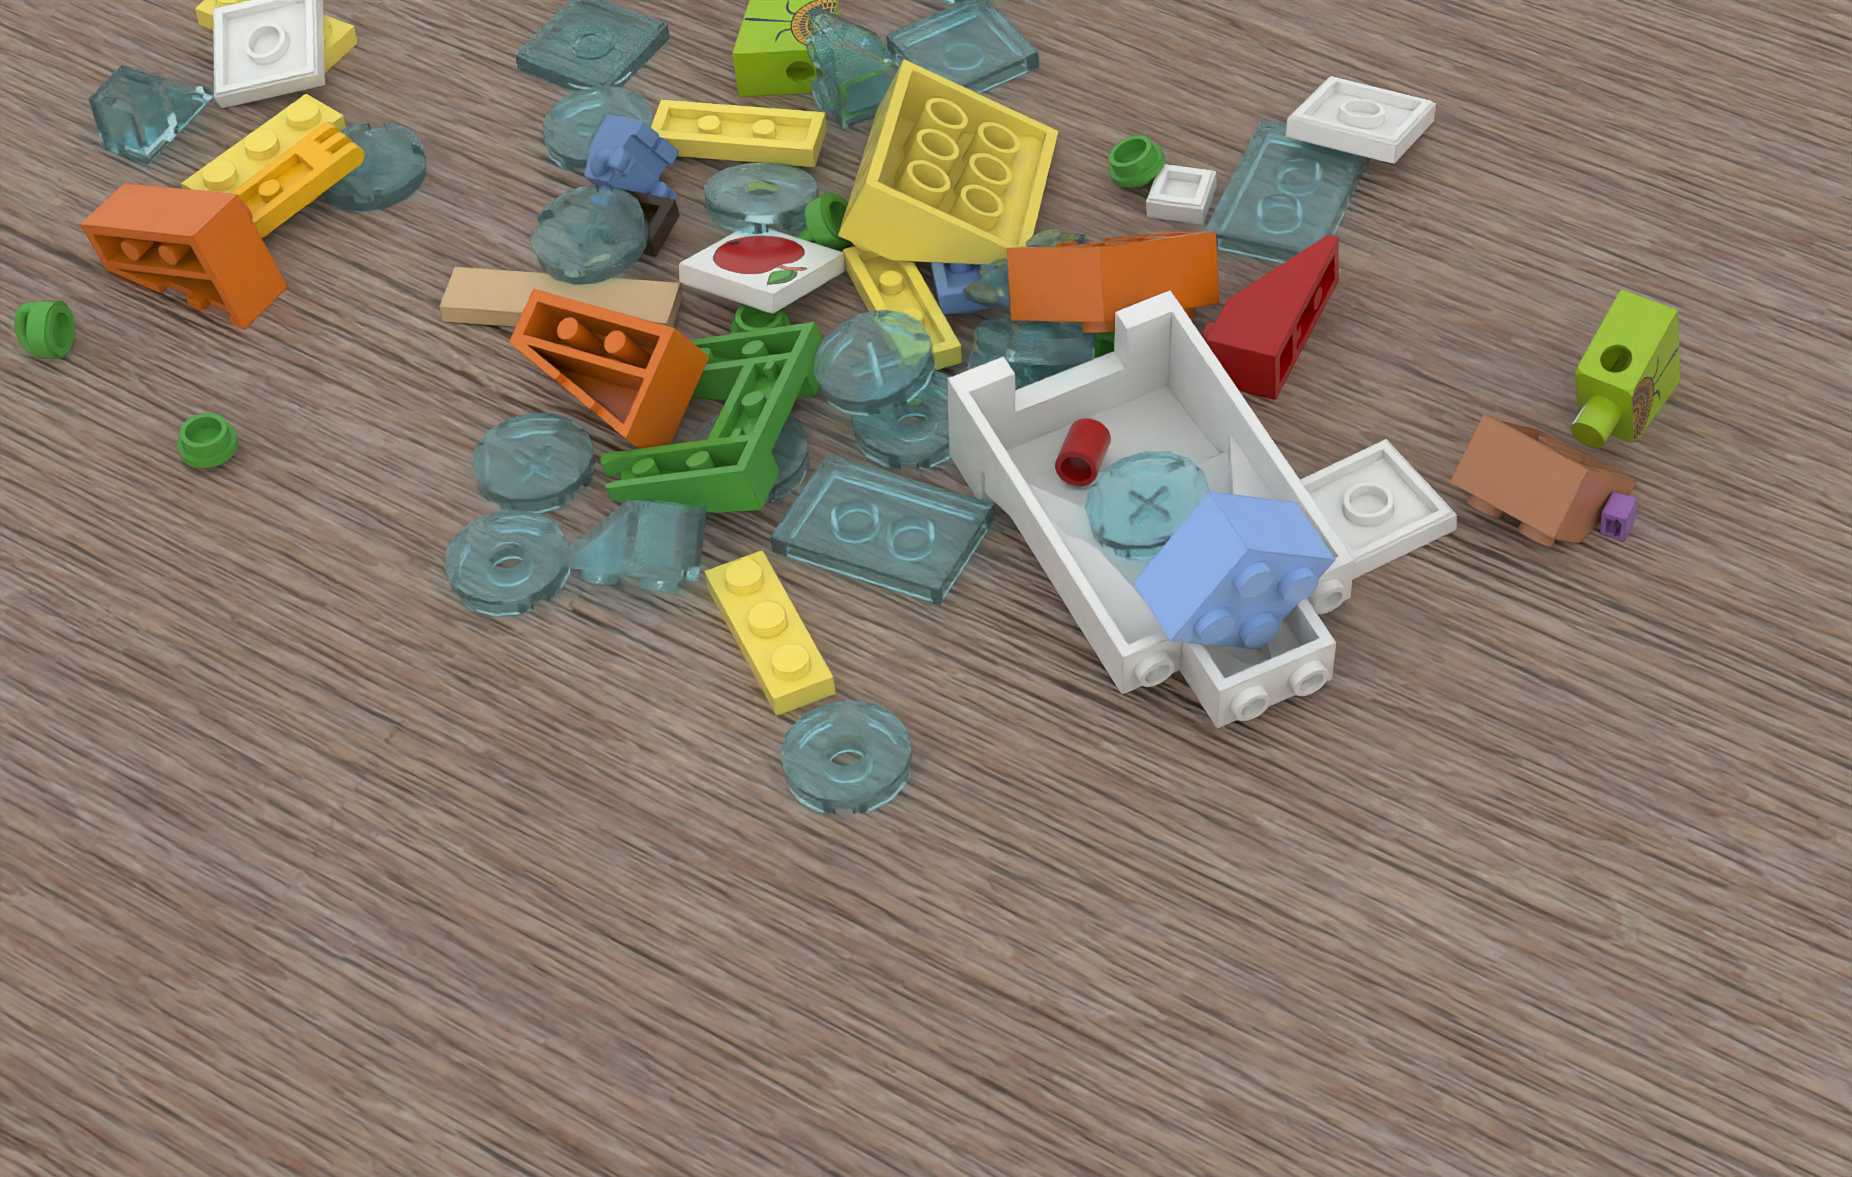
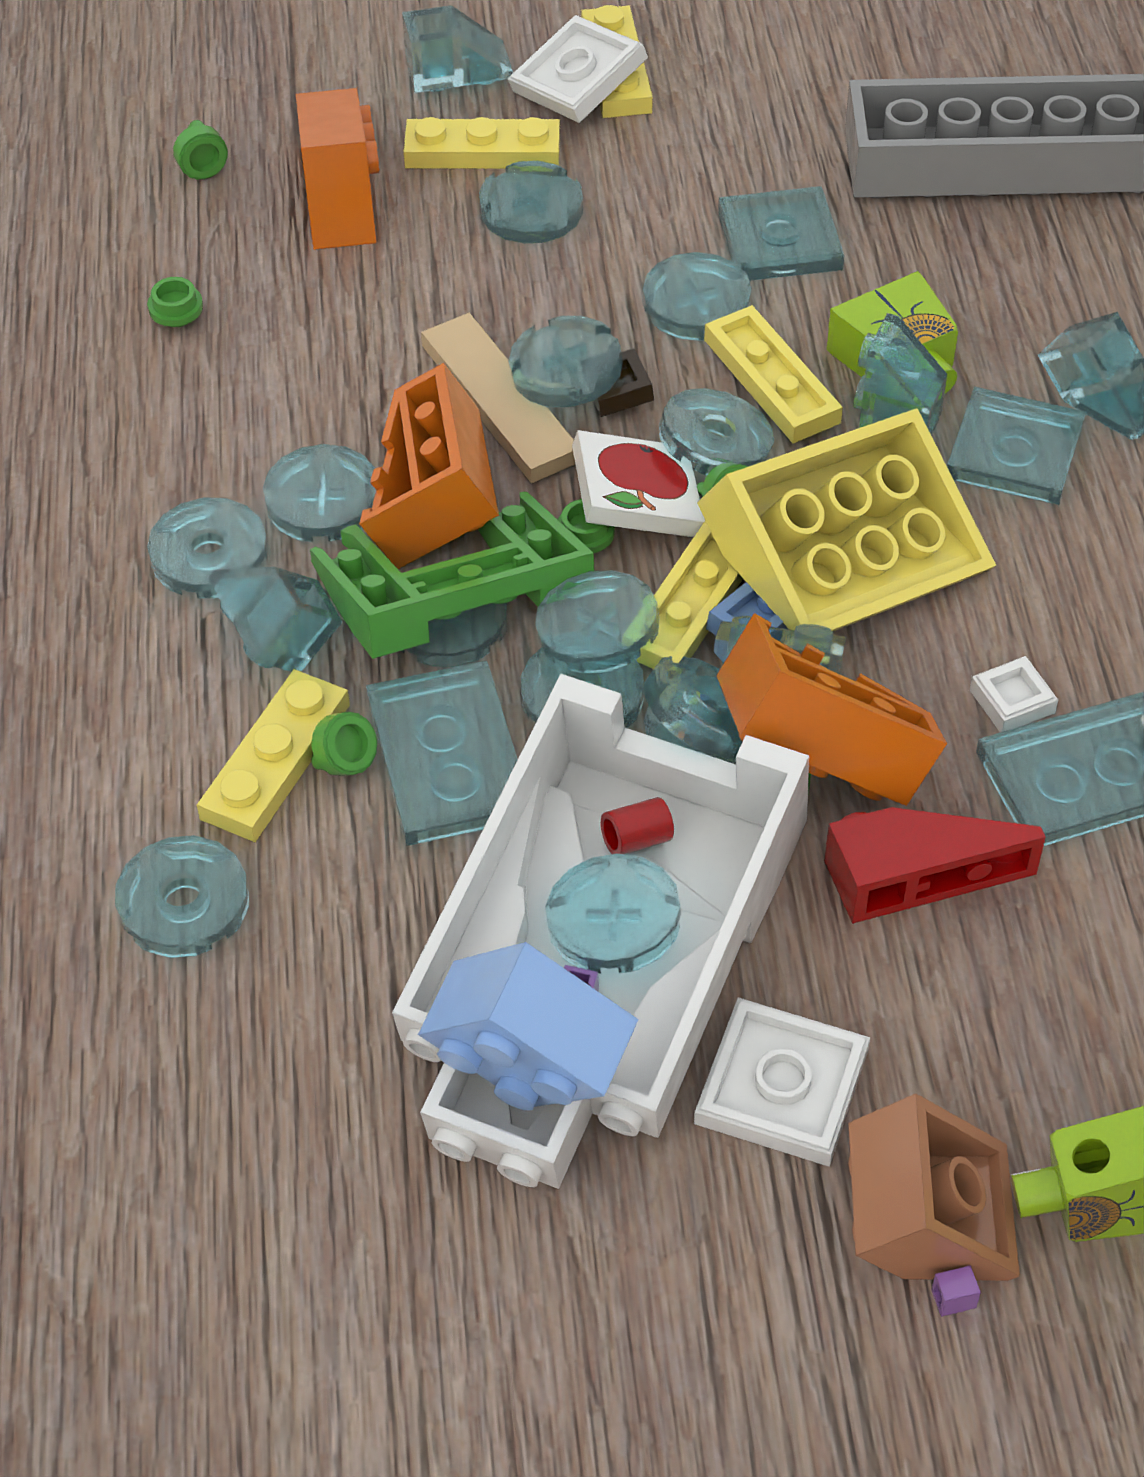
camera: 45 degrees right, 5 degrees up
(299, 176) = (453, 170): yellow hinge -> none
(629, 157) = (663, 332): medium blue piece -> none
(816, 579) = (343, 744): none -> bright green tile
(1135, 162) = (1007, 637): bright green plate -> none

